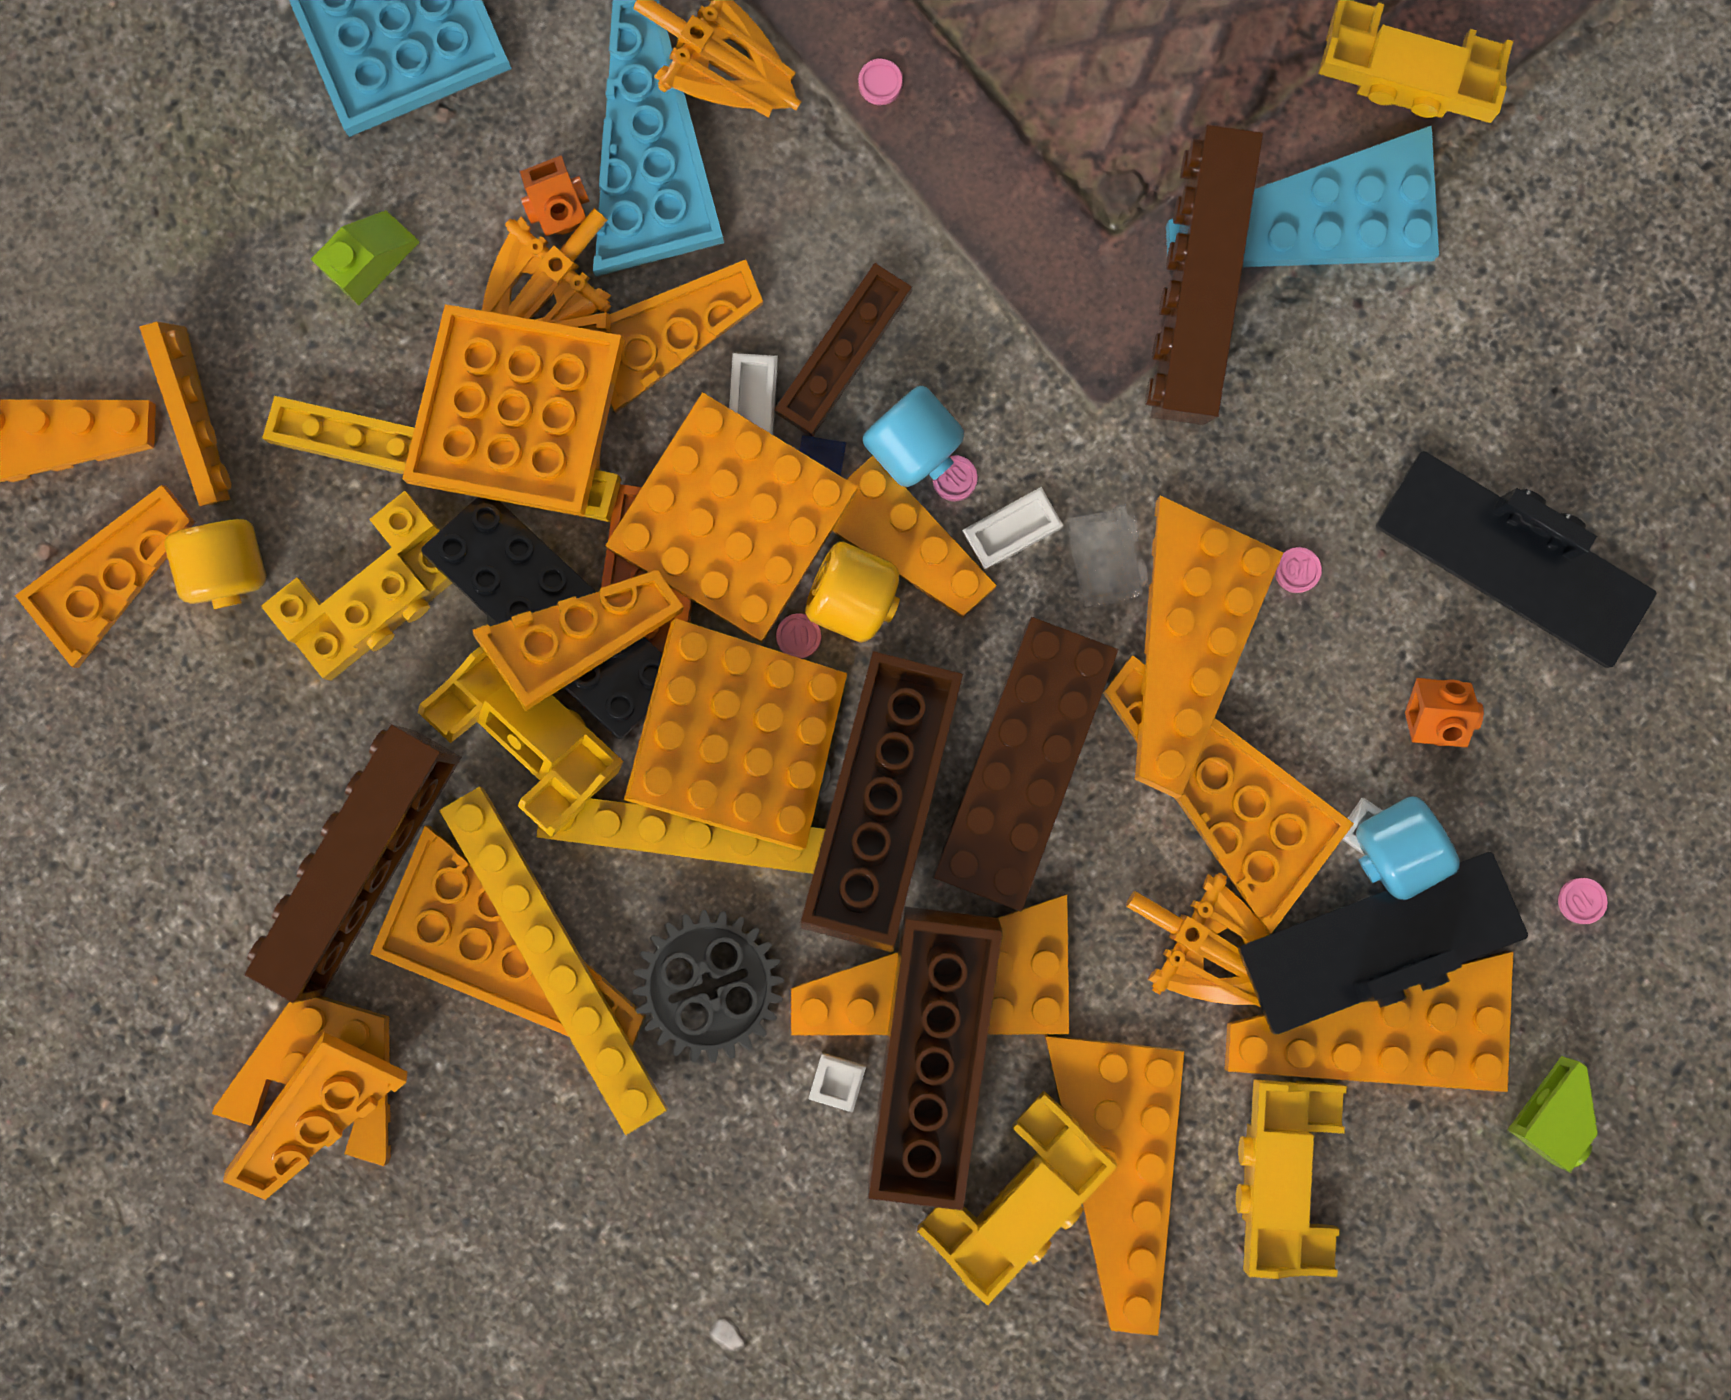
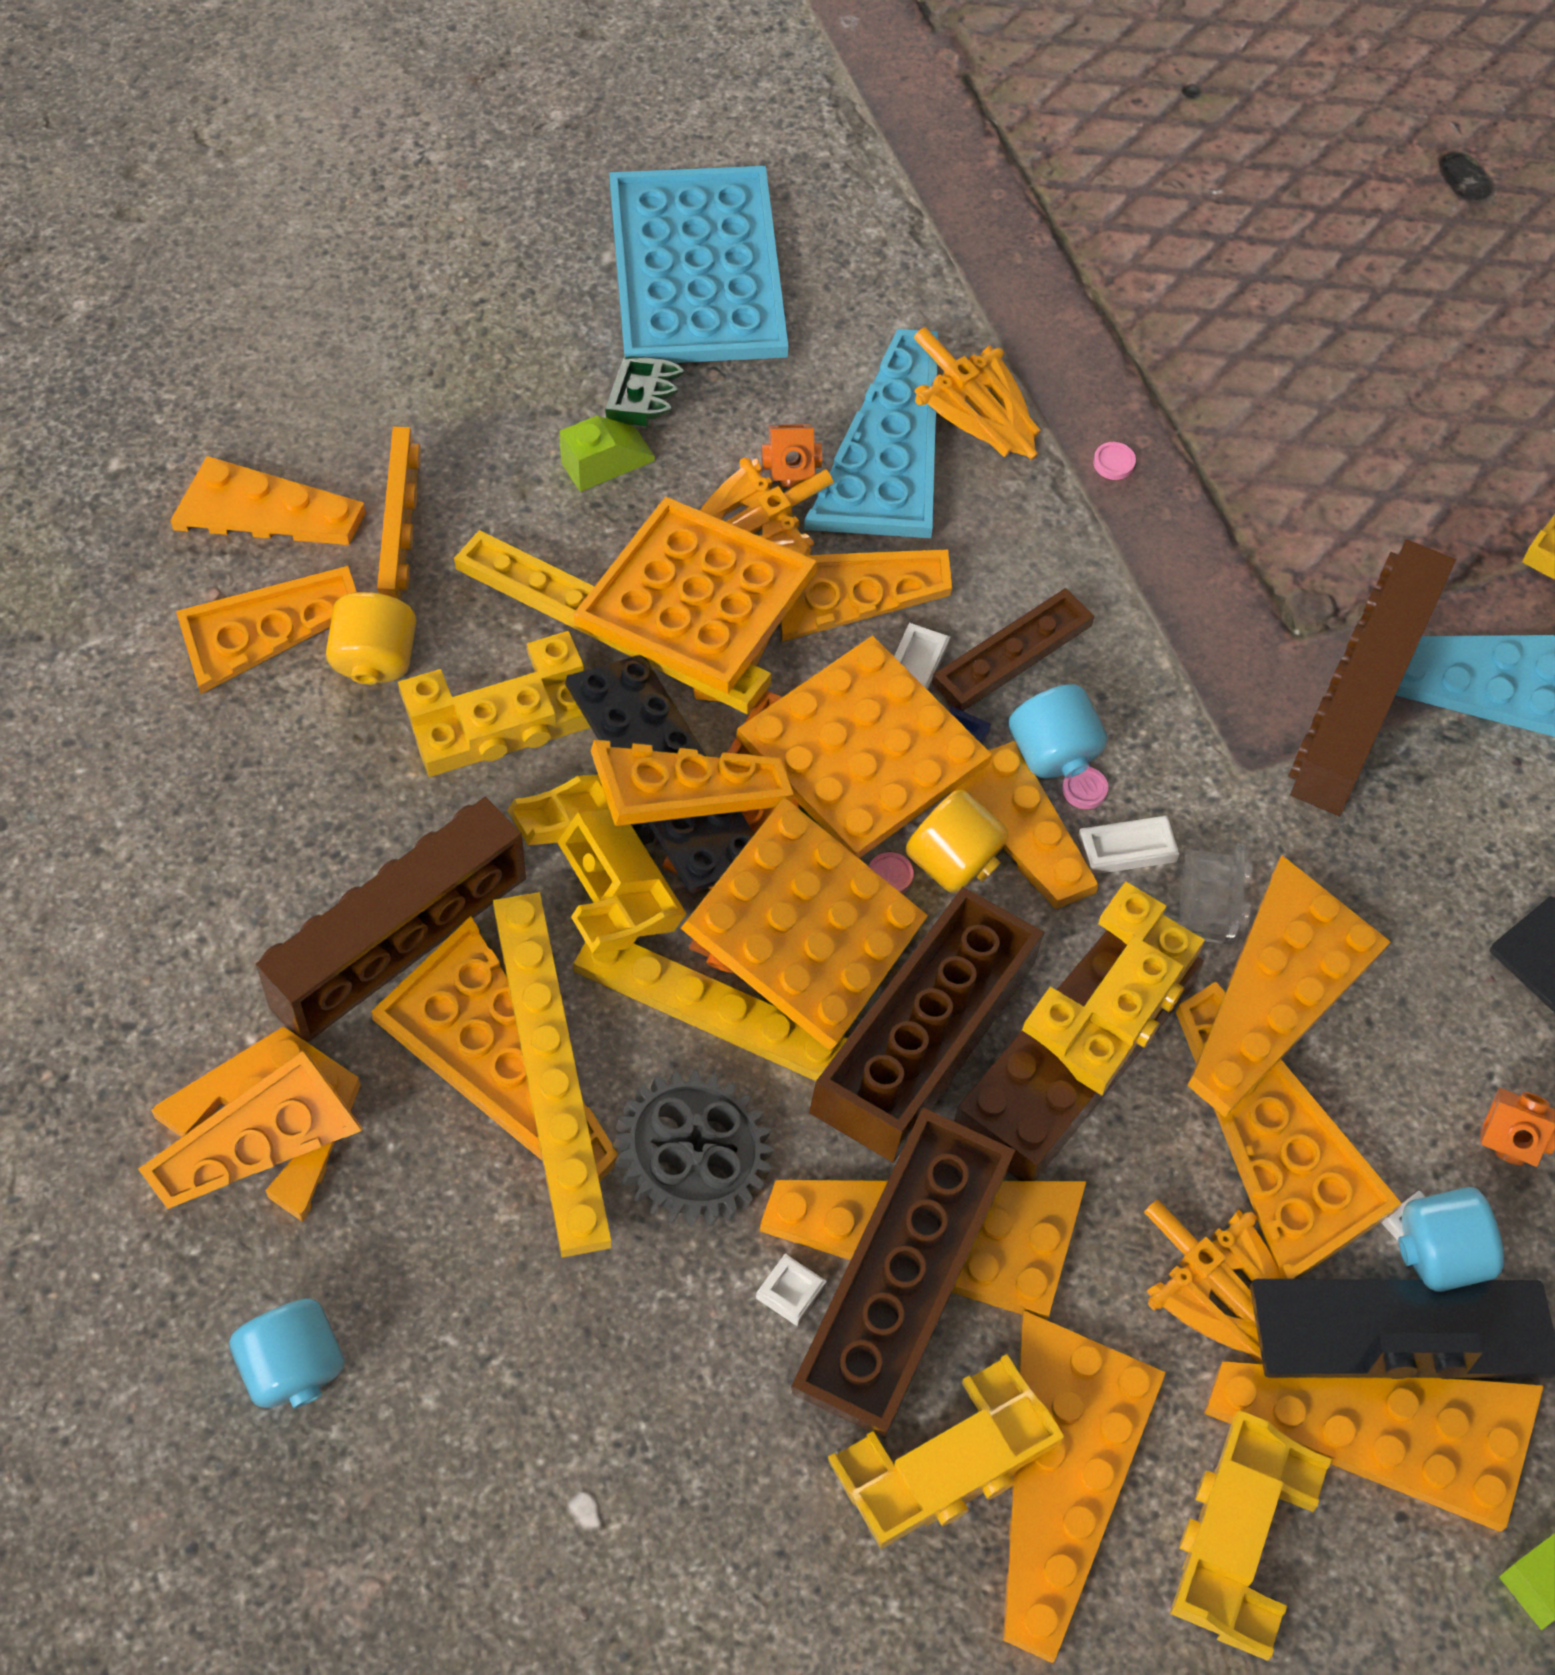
camera: 10 degrees right, 25 degrees down
(372, 168) = (641, 390): none -> plate
(423, 1305) = (287, 1354): none -> medium azure head
(1062, 726) = (1122, 1010): none -> yellow bracket
(1298, 570) = (1401, 966): bright pink piece -> none

